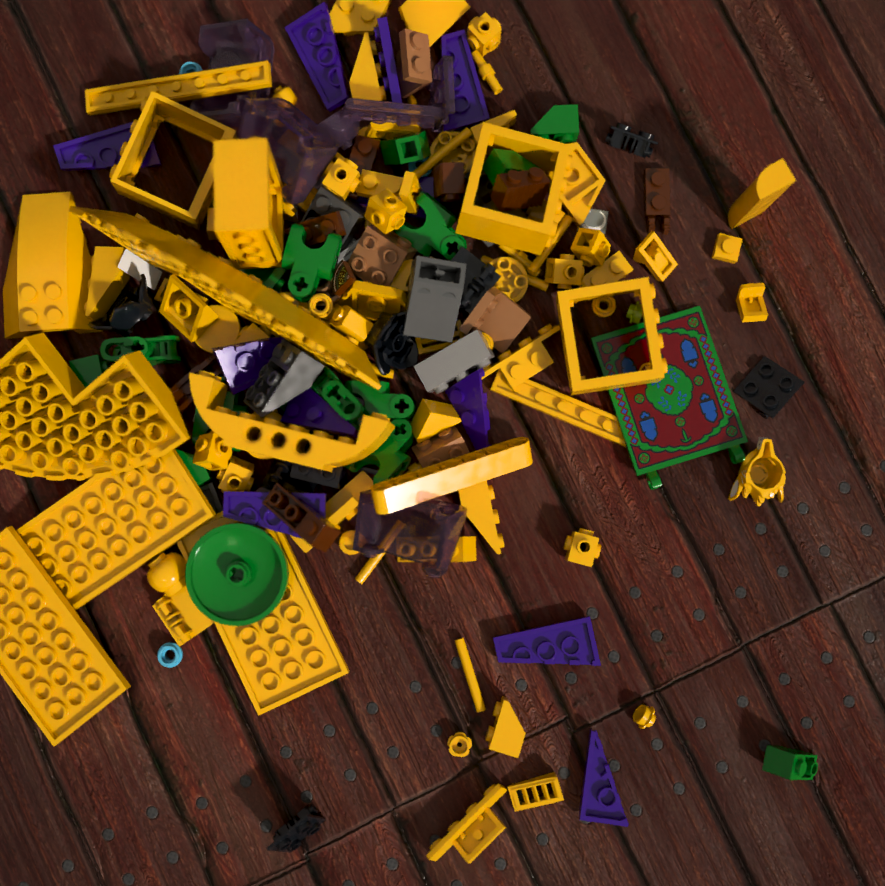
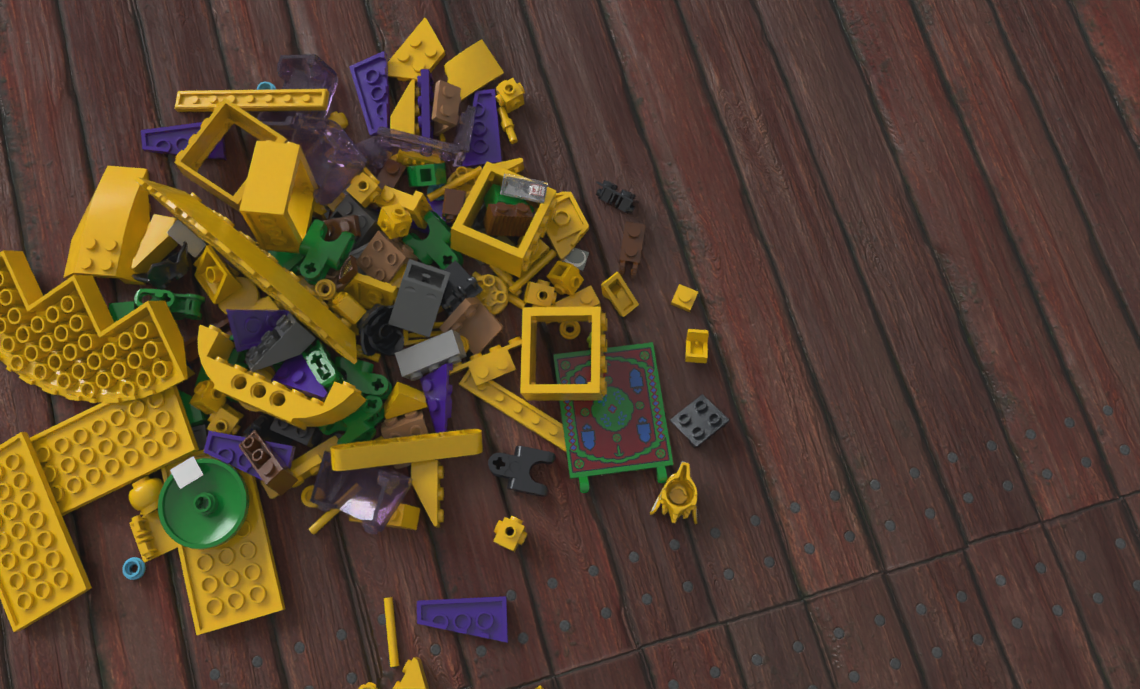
camera: 15 degrees right, 10 degrees down
(210, 543) = (186, 472): none -> white sticker
(534, 148) = (524, 188): none -> clear slope
(559, 124) = (558, 174): green slope -> none
(577, 474) = (518, 469): none -> black piece
(761, 193) = (711, 254): yellow brick -> none

